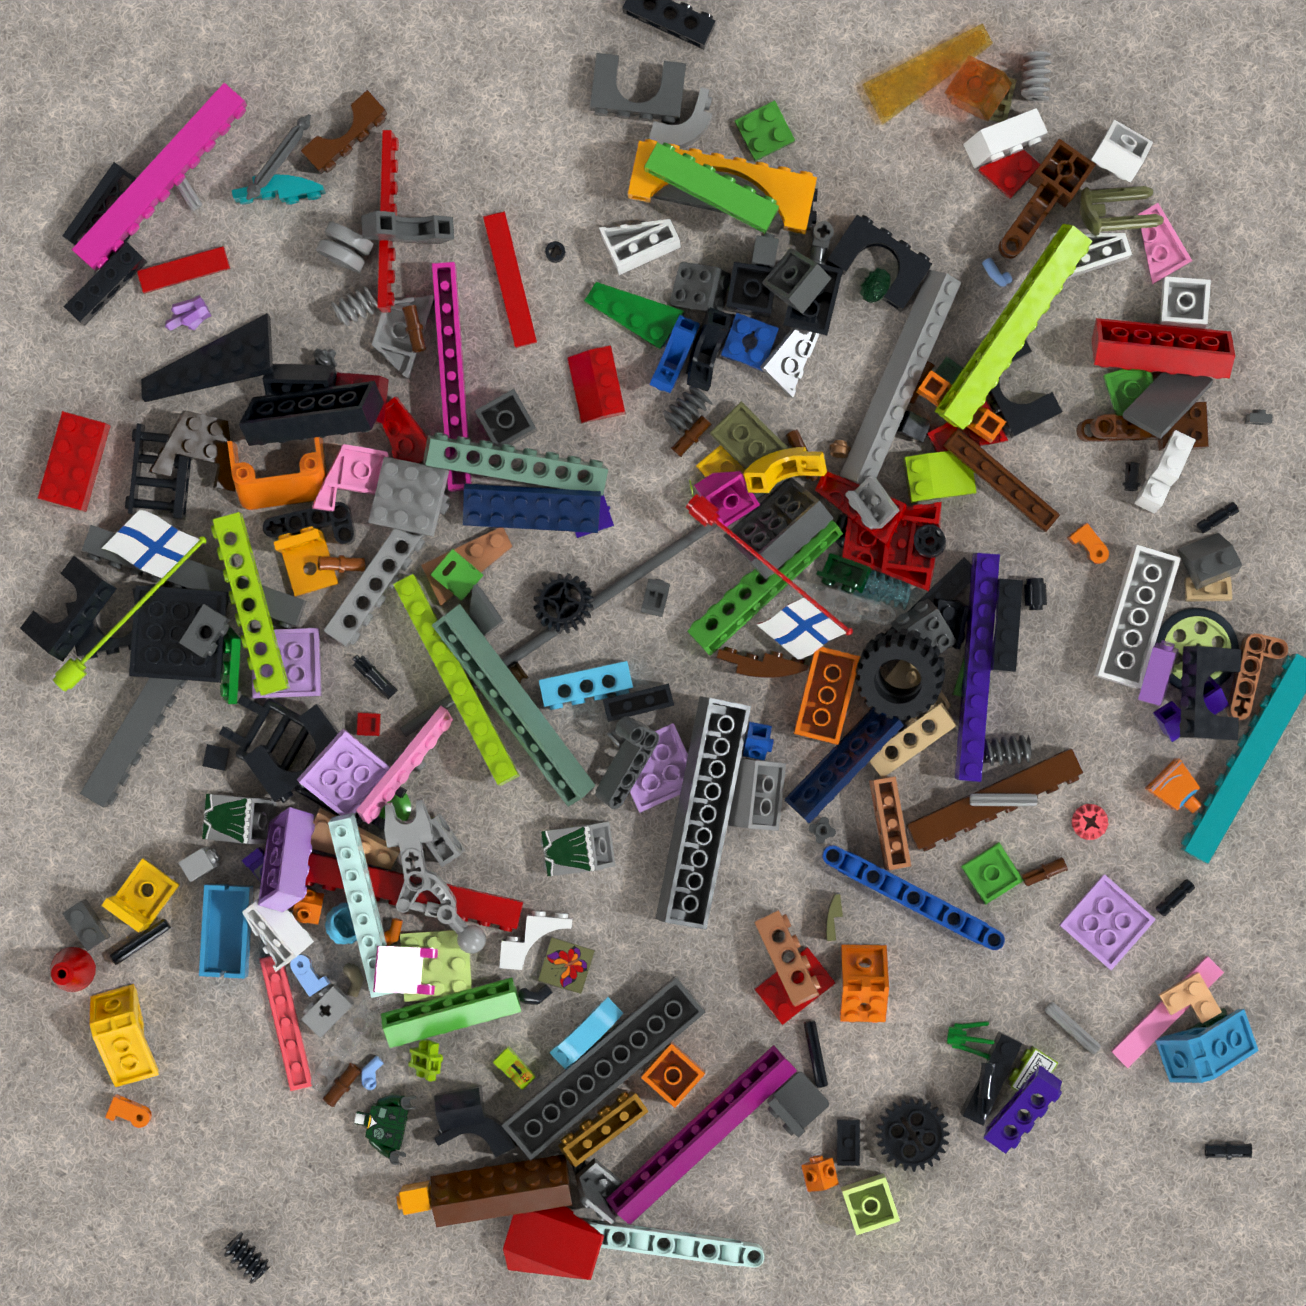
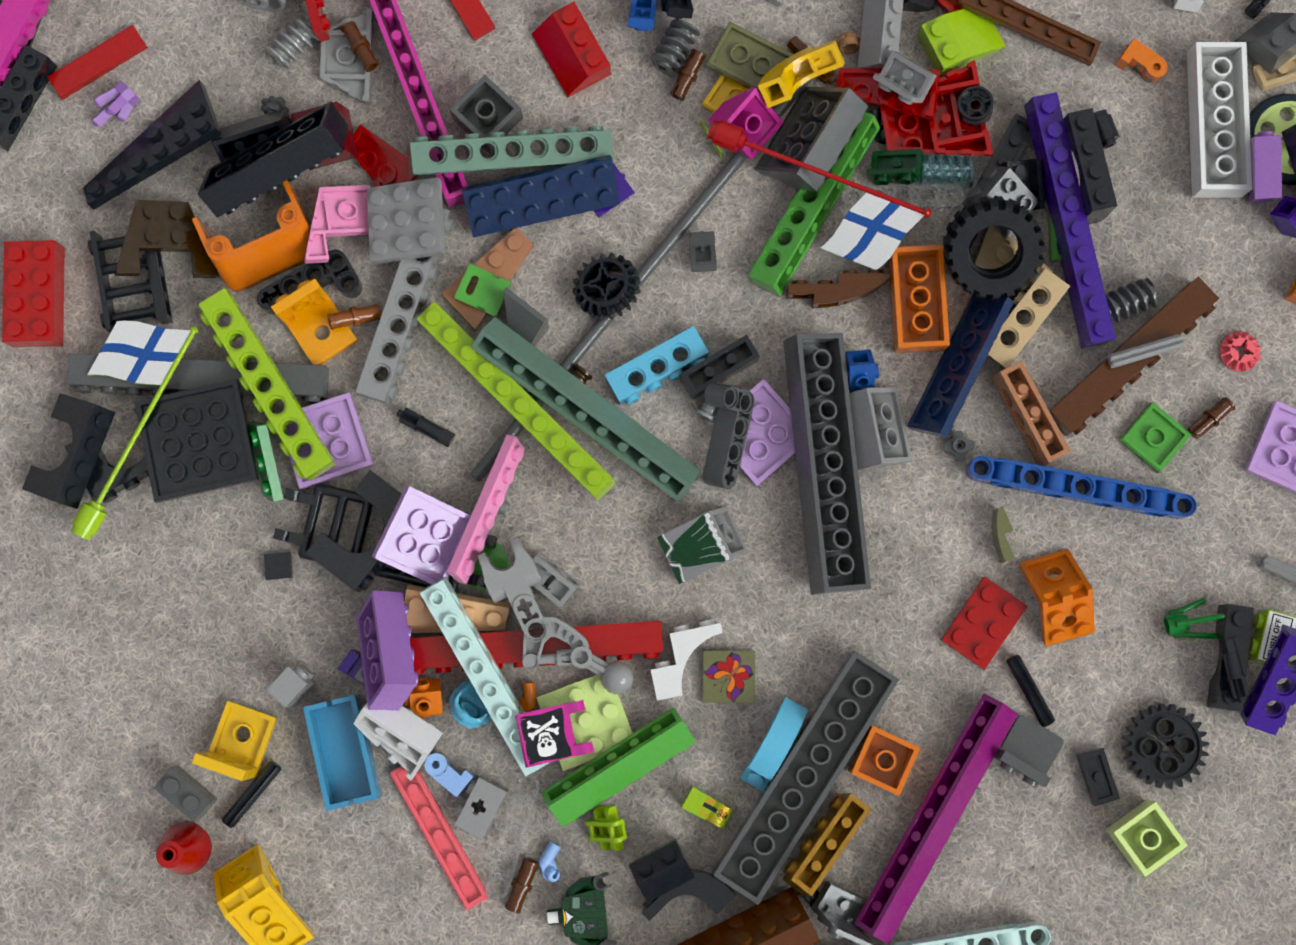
camera: 20 degrees left, 5 degrees down
(130, 739) = (178, 573): dark grey brick -> none
(205, 617) = (219, 412): dark grey brick -> none
(237, 818) = (320, 624): slope -> none
(355, 977) = (501, 761): dark tan arm -> none
(369, 724) = (434, 479): red plate -> none
(534, 998) = (704, 723): black arm -> none
(768, 928) = (993, 626): nougat brick -> none
(819, 1173) = (1079, 821): orange brick -> none

